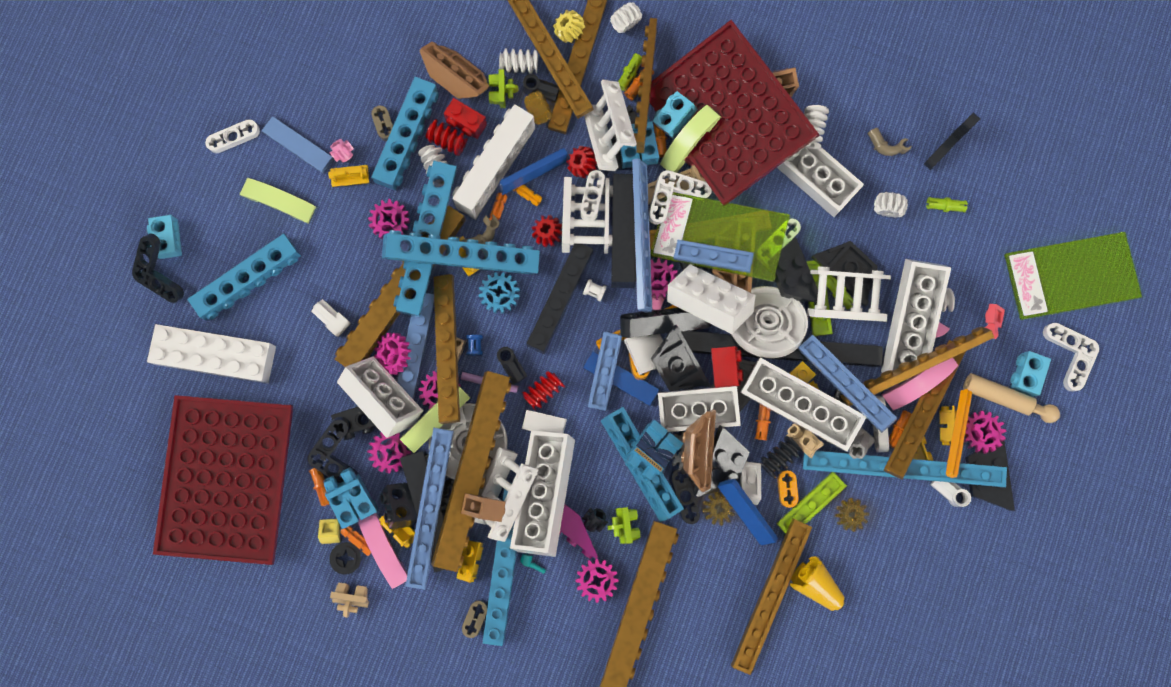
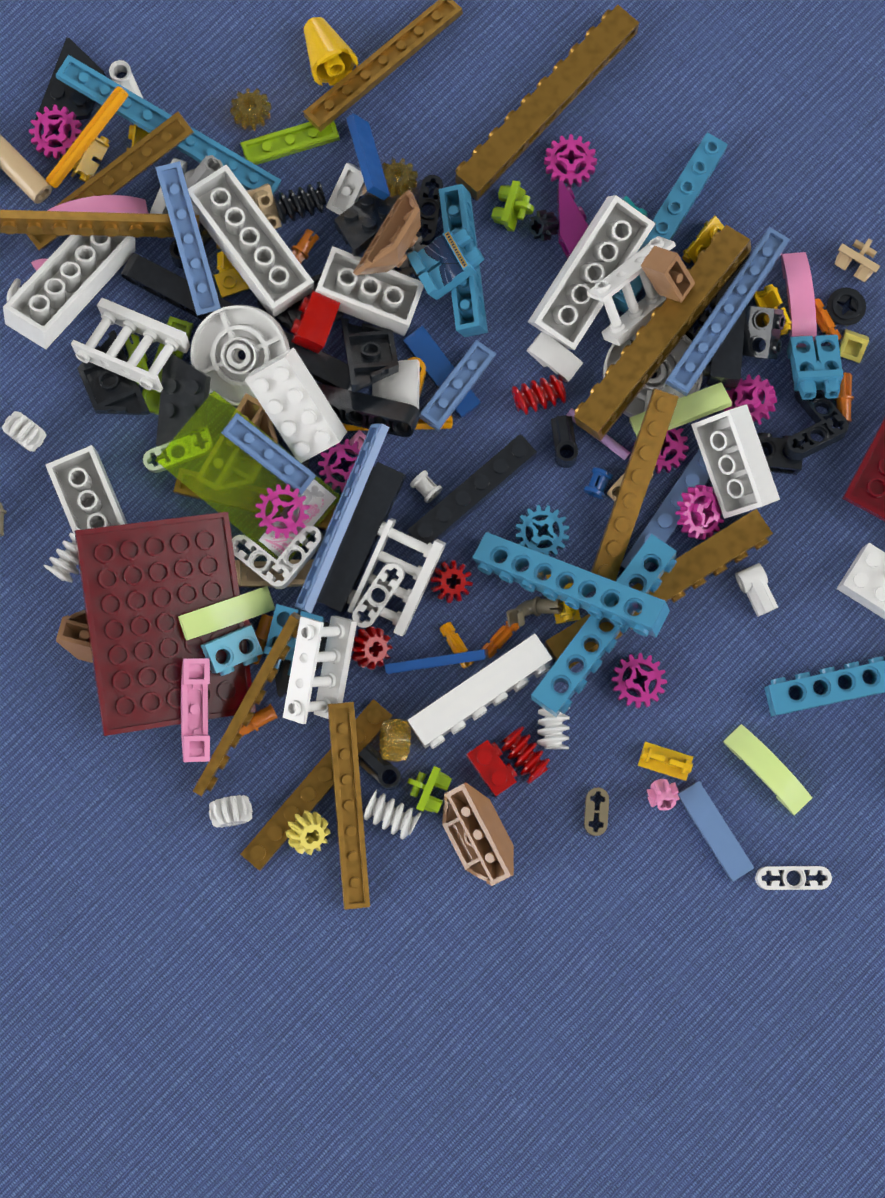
camera: 155 degrees left, 0 degrees up
(419, 90) = (624, 742): dark azure brick -> none
(470, 617) = (721, 176): dark tan beam -> none
(629, 71) = (258, 741): lime pin -> none
(679, 63) = (195, 709): none -> bright pink slope
(685, 221) = (295, 502): none -> dark pink gear
(782, 489) = (303, 166): light orange beam -> none
(898, 428) = (145, 179): orange axle -> none

